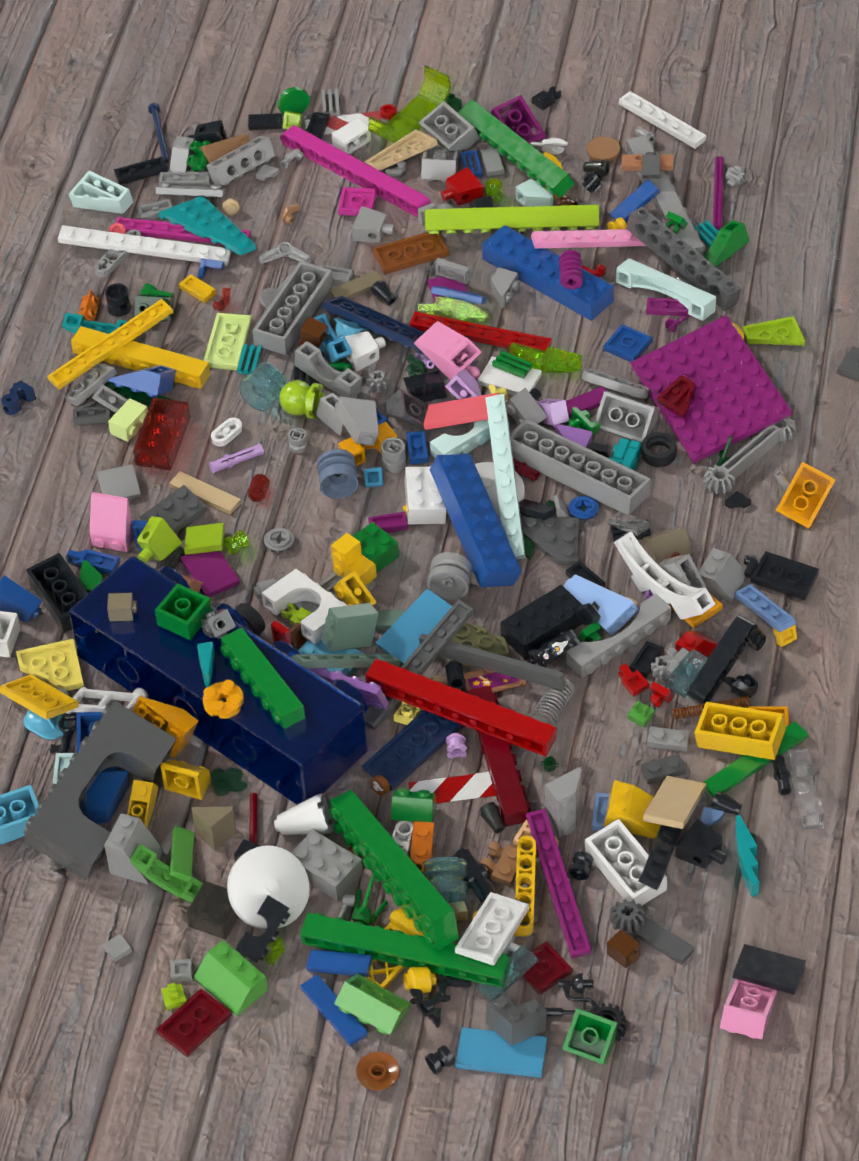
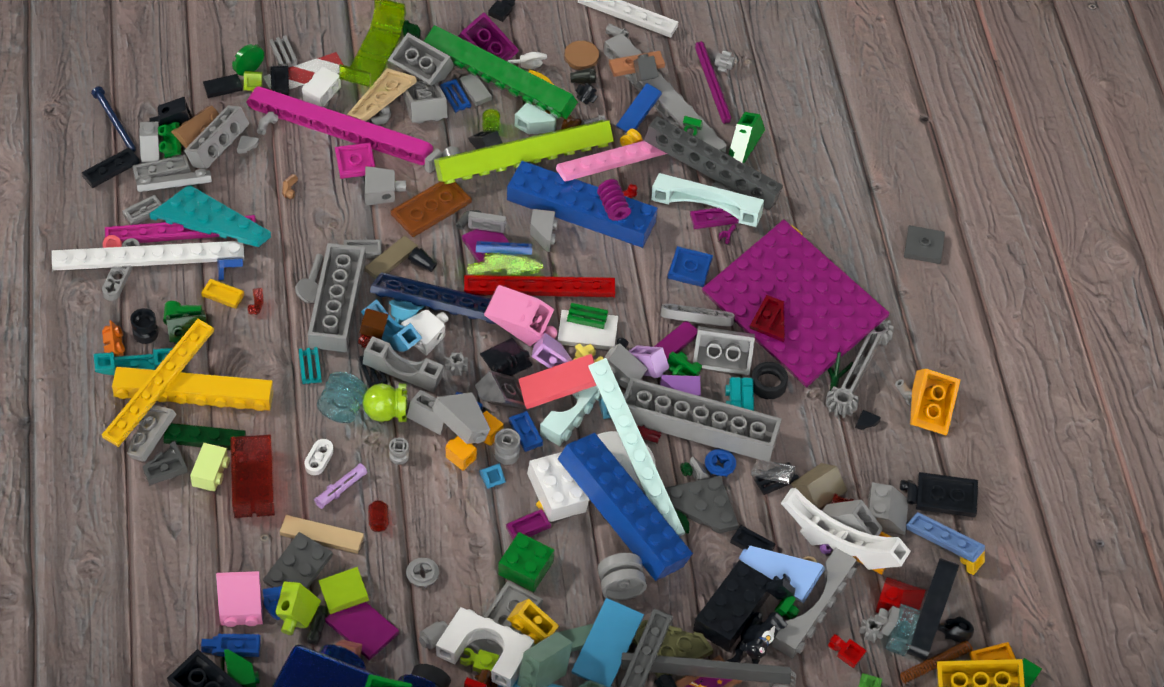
camera: 25 degrees left, 5 degrees up
(11, 401) = (70, 472): dark blue leg -> none
(100, 194) = (79, 204): light aqua wedge -> none
(109, 398) = (181, 447): light grey slope -> none
(119, 482) = (224, 545): light grey slope -> none
(152, 380) = (217, 415): slope -> none
(227, 340) = (278, 348): yellowish green tile -> none
(230, 206) = (224, 191): tan plate -> none
(236, 542) = (381, 584): clear neon green wheel -> none
(284, 250) = (299, 231): light grey piece -> none
(337, 473) = (459, 483): sand blue wheel -> none
(340, 366) = (415, 353): green arm -> none
(349, 558) = (513, 585): yellow brick -> none
(388, 111) = (347, 52): red tile -> none
(415, 366) = (488, 337): clear green tile -> none
(428, 363) = (495, 329): lavender arm -> none
(462, 187) = (459, 124): red torso -> none
(536, 509) = (676, 476): black tile -> none
(548, 361) = (624, 303): clear neon green slope -> none
(601, 449) = (714, 394): black tile -> none
(645, 657) = (849, 621): black tile -> none
(659, 694) = (881, 659): red tile -> none
(709, 230) = (724, 128): teal tile -> none
(774, 332) = (830, 224): lime wing -> none

